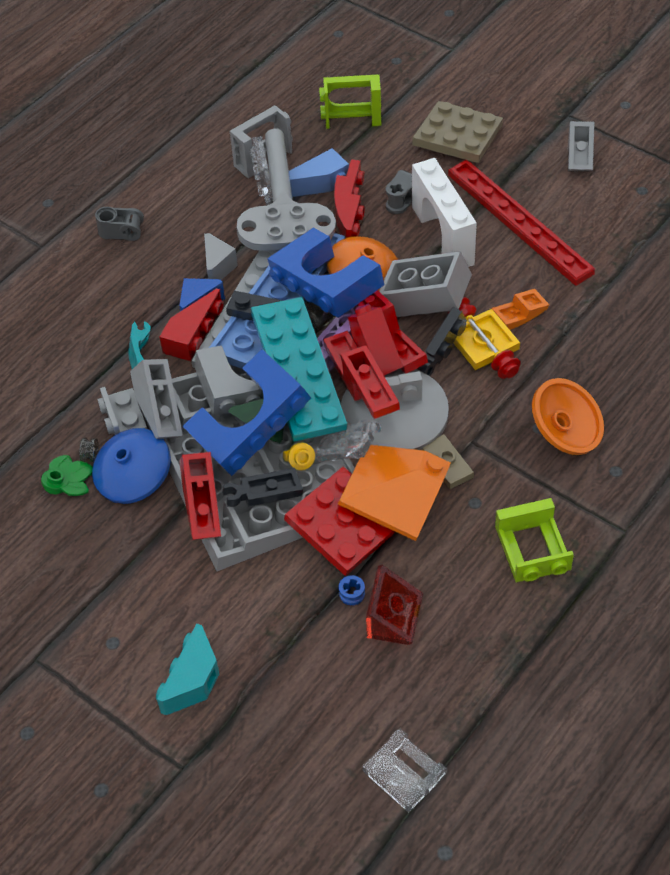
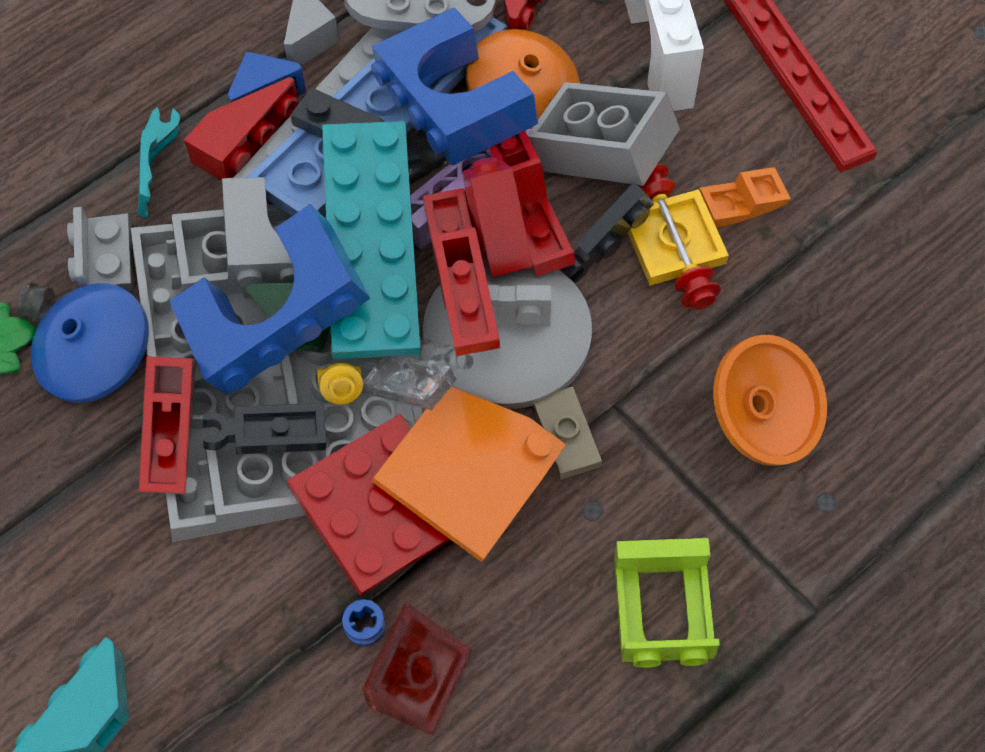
camera: 10 degrees right, 10 degrees up
(157, 398) = (148, 245): light grey slope -> none

